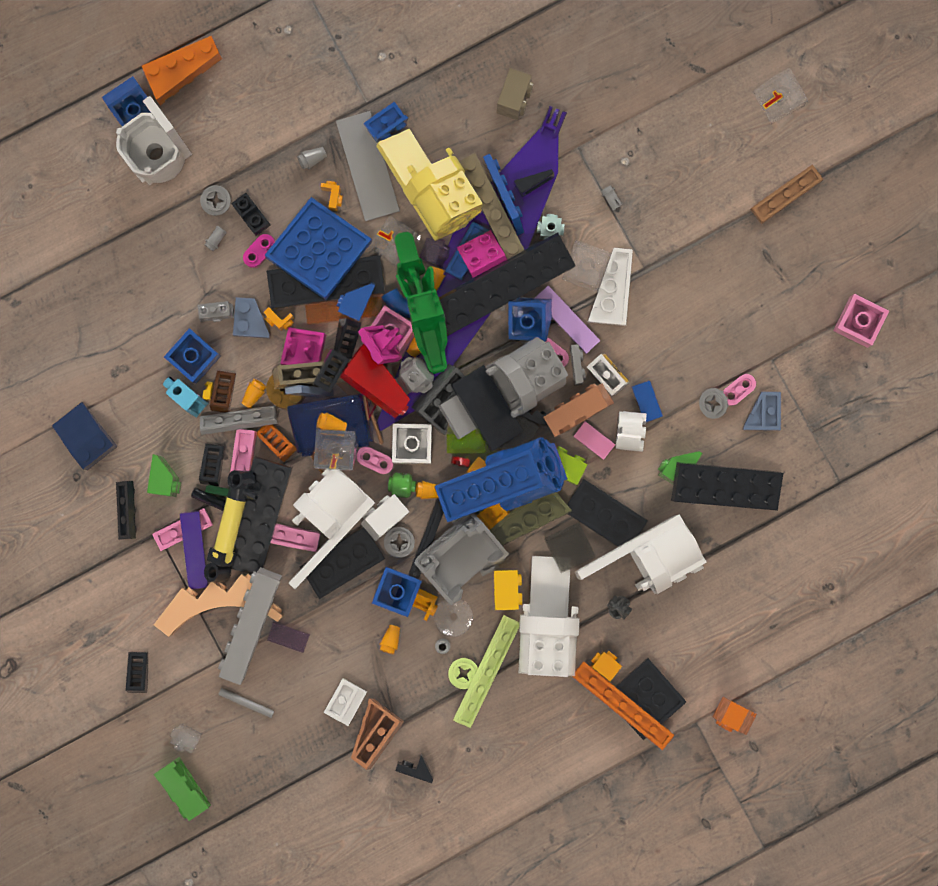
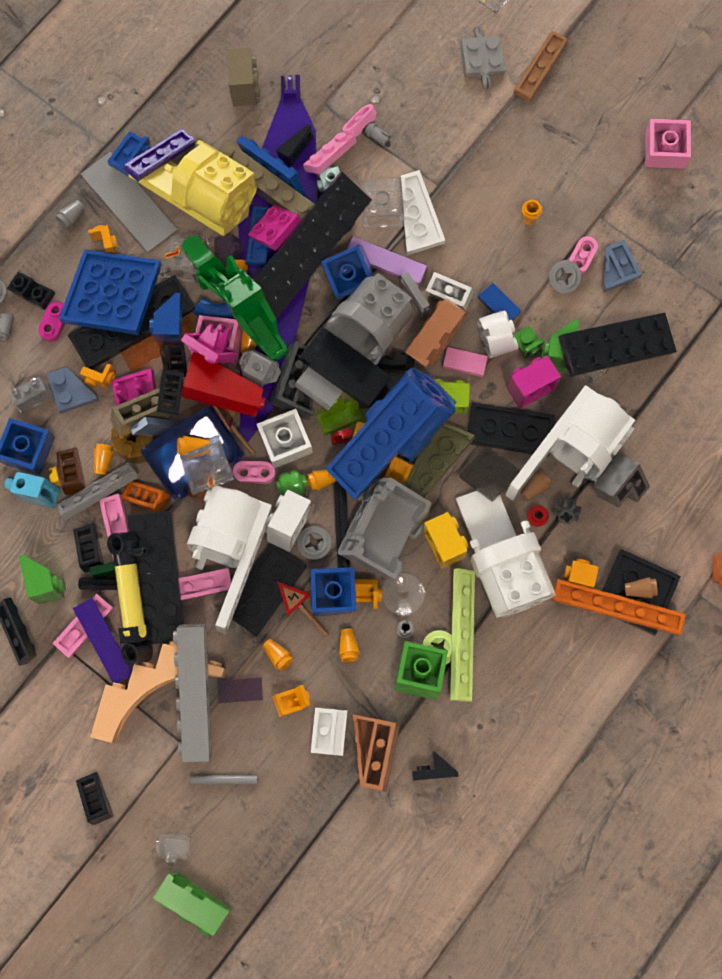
camera: 20 degrees left, 10 degrees down
(325, 665) = (291, 701): none -> light orange bracket
(330, 622) = (277, 654): none -> light orange cone
(361, 582) = (293, 599): none -> piece
(411, 137) = (159, 154): none -> tile
(440, 686) = (421, 670): none -> bright green slope
(560, 200) = (329, 153): none -> bright pink plate
(589, 595) = (533, 520): none -> red plate
(601, 178) = (360, 120): none -> bright pink plate
(605, 574) = (536, 485): none -> medium nougat cone
(641, 486) = (533, 381): none -> dark pink brick
(649, 699) = (642, 588): none -> medium nougat cone
(655, 446) = (528, 342): none -> bright green bracket
(673, 604) = (621, 481): none -> flat silver brick
(715, 329) = (531, 211): none -> light orange cone
(738, 163) = (482, 57): none -> light grey plate

